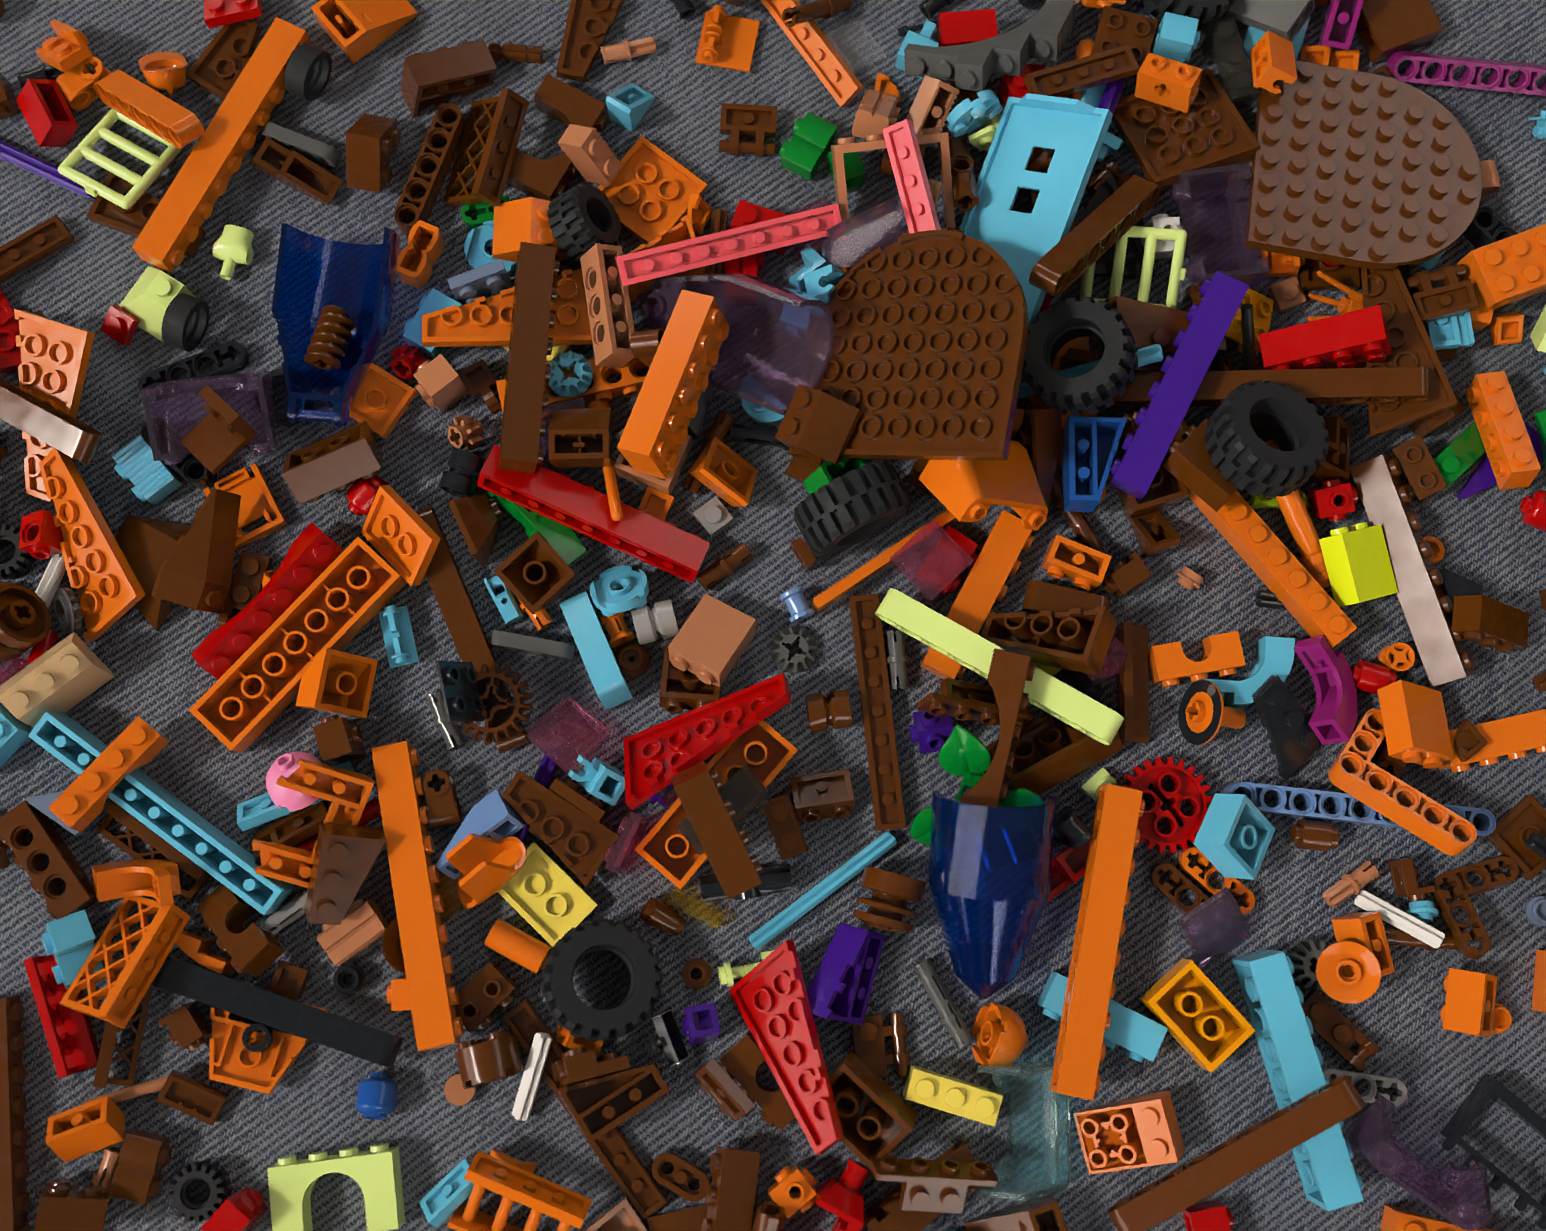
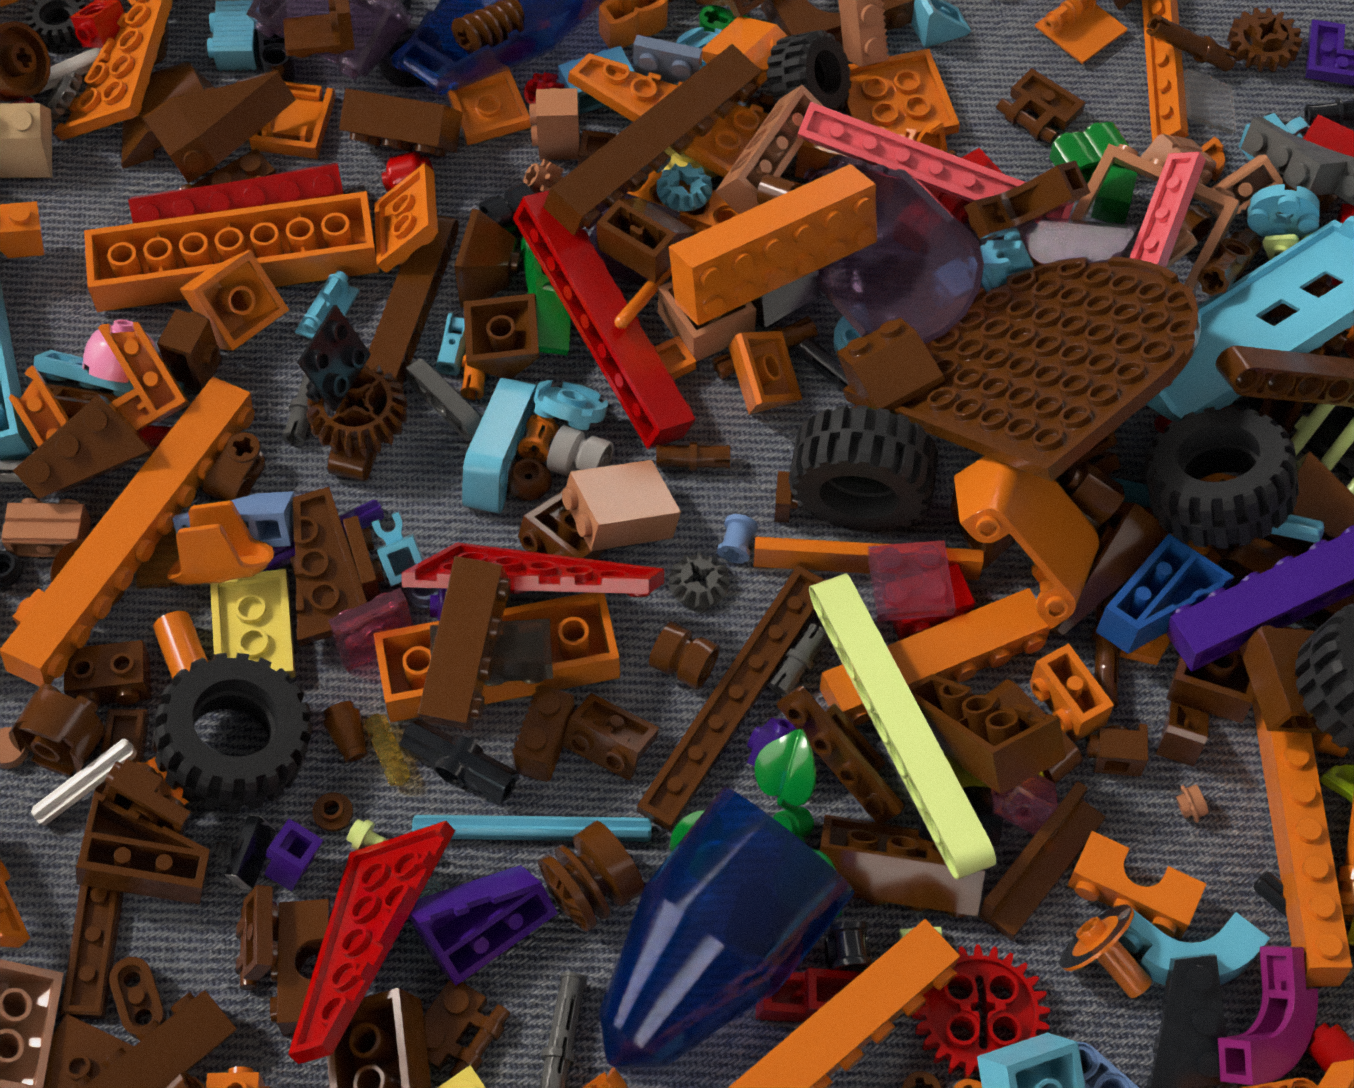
camera: 40 degrees right, 20 degrees down
(567, 733) = (412, 490): clear pink plate -> none
(713, 516) = (721, 408): light grey plate -> none
(812, 230) = (1028, 202): none -> reddish brown arch
(1007, 678) = (894, 724): reddish brown arch -> none

